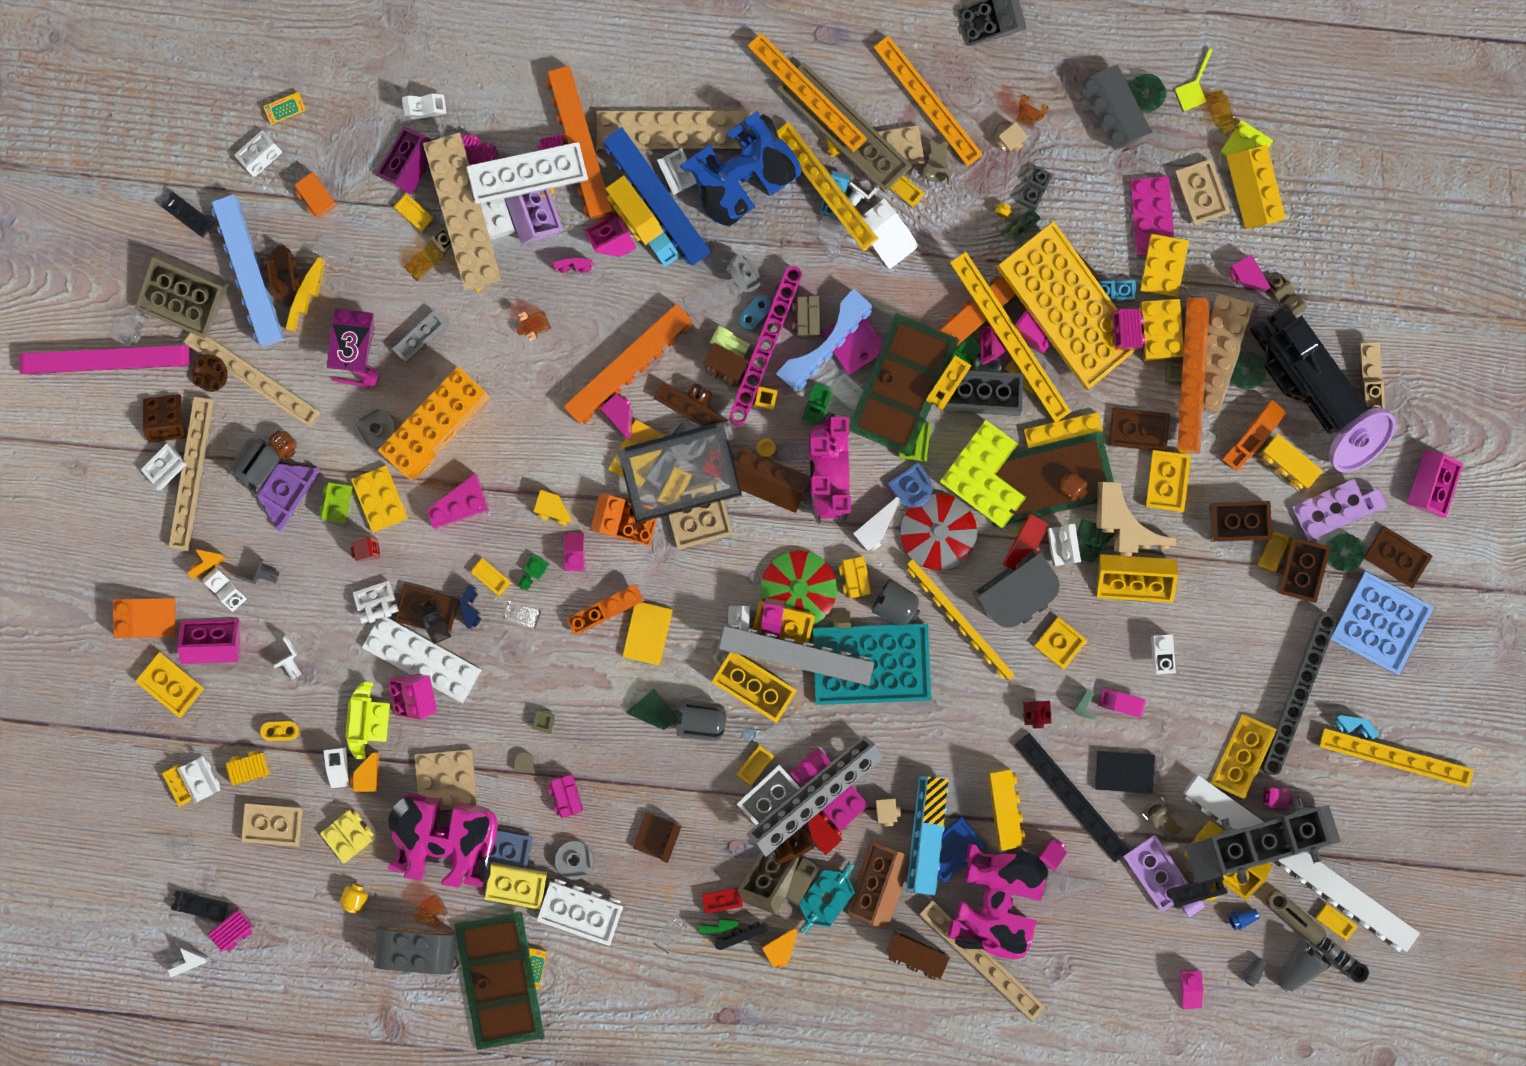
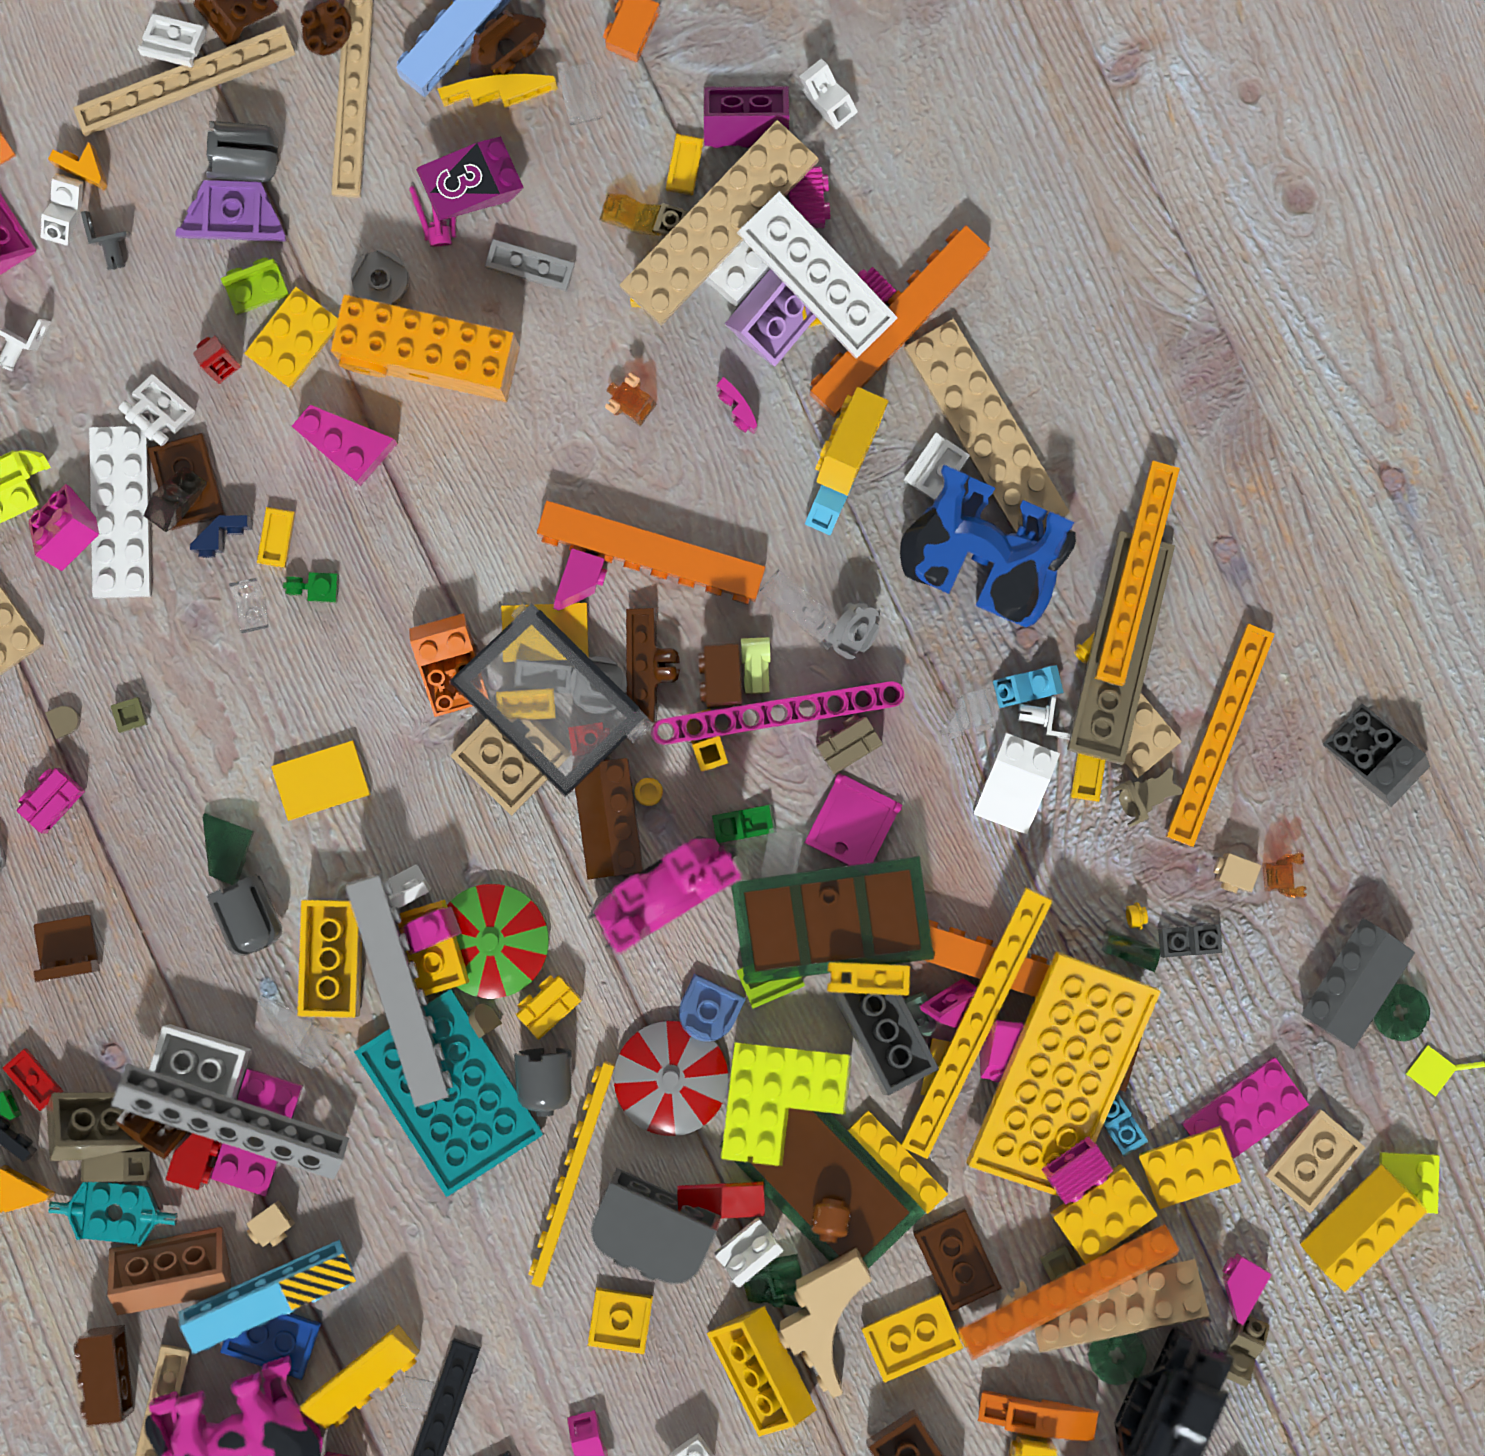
camera: 55 degrees right, 0 degrees up
(283, 444) = (289, 174): dark orange head -> none
(552, 506) = (411, 563): yellow slope -> none
(574, 552) = (368, 625): dark pink slope -> none
(605, 609) = (318, 708): orange slope -> none
(610, 237) = (800, 431): dark pink slope -> none
(657, 196) = (888, 459): blue brick -> none
(755, 312) = (814, 674): medium azure plate -> none
(755, 765) = (232, 1018): yellow tile -> none
(798, 370) = (888, 798): light blue arch -> none
(828, 188) = (1030, 673): yellow plate -> none
(874, 530) = (627, 994): white slope -> none
(968, 349) = (927, 977): green slope -> none
(1037, 713) = (509, 1345): dark red brick -> none
(1083, 700) = (562, 1396): sand green plate -> none
(1221, 112) = (1433, 1122): clear yellow slope -> none

